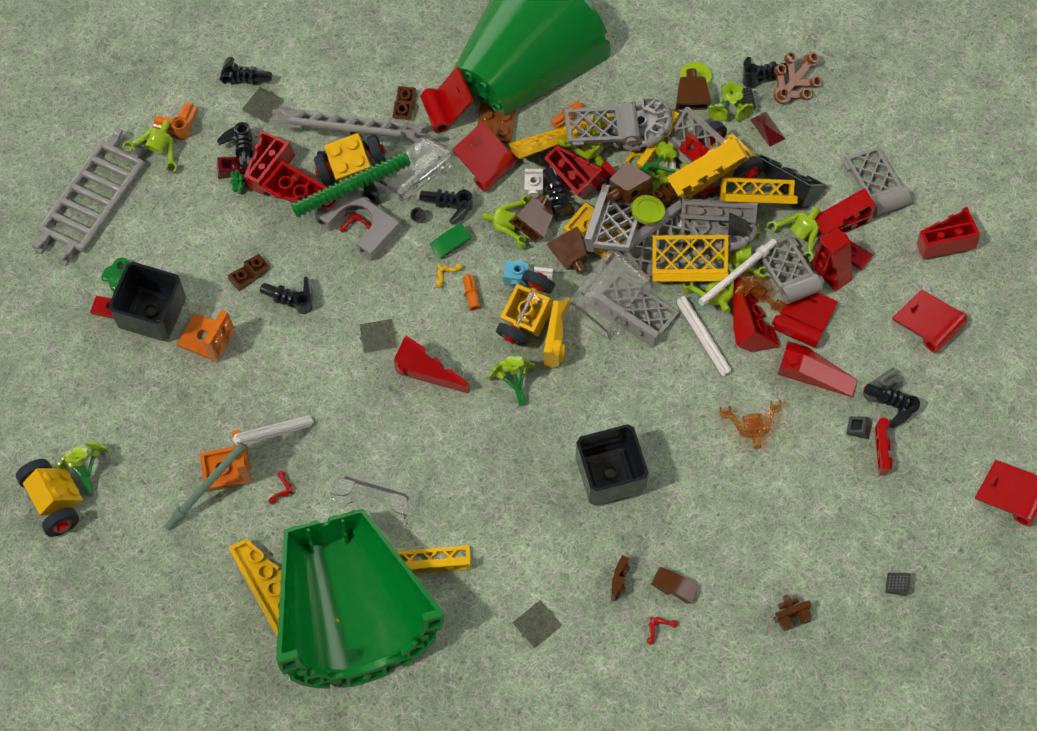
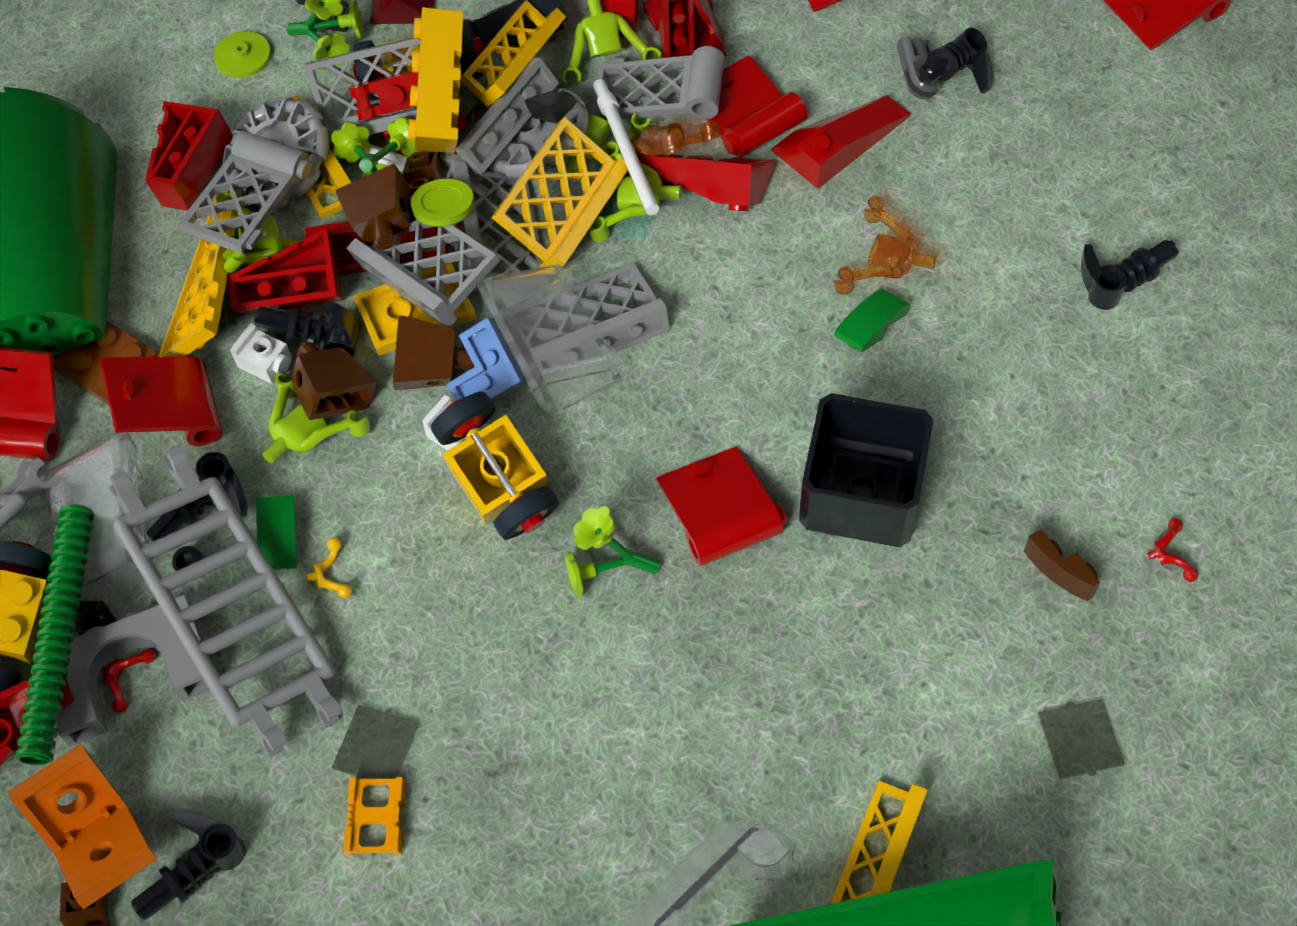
camera: 60 degrees left, 5 degrees down
(282, 248) = (87, 828): none -> orange bracket
(349, 357) = (388, 815): none -> light orange piece
(416, 364) = (481, 695): red wedge -> none
(422, 248) = (256, 711): none -> light grey bar
(471, 292) = (396, 547): orange axle -> none
(513, 273) = (414, 457): medium azure brick -> none
(554, 346) = (584, 459): yellow slope -> none
(560, 119) = (173, 250): orange axle -> none
(567, 414) = (721, 505): none -> red door
(572, 281) = (494, 364): none -> medium blue plate
(618, 88) = (186, 153): none -> red wedge
(675, 584) = (1110, 489): reddish brown slope -> none
(692, 92) = (271, 64): reddish brown torso -> none
(704, 336) = (696, 249): white axle -> none
(707, 432) = (869, 320): none -> green slope
(784, 616) = (1231, 349): reddish brown hips -> none
(809, 543) = (1108, 282): none -> black piece
(859, 426) = (965, 128): pearl dark grey slope -> none
(883, 445) = (1017, 111): red plate -> none
(898, 583) = (1246, 196): pearl dark grey slope -> none

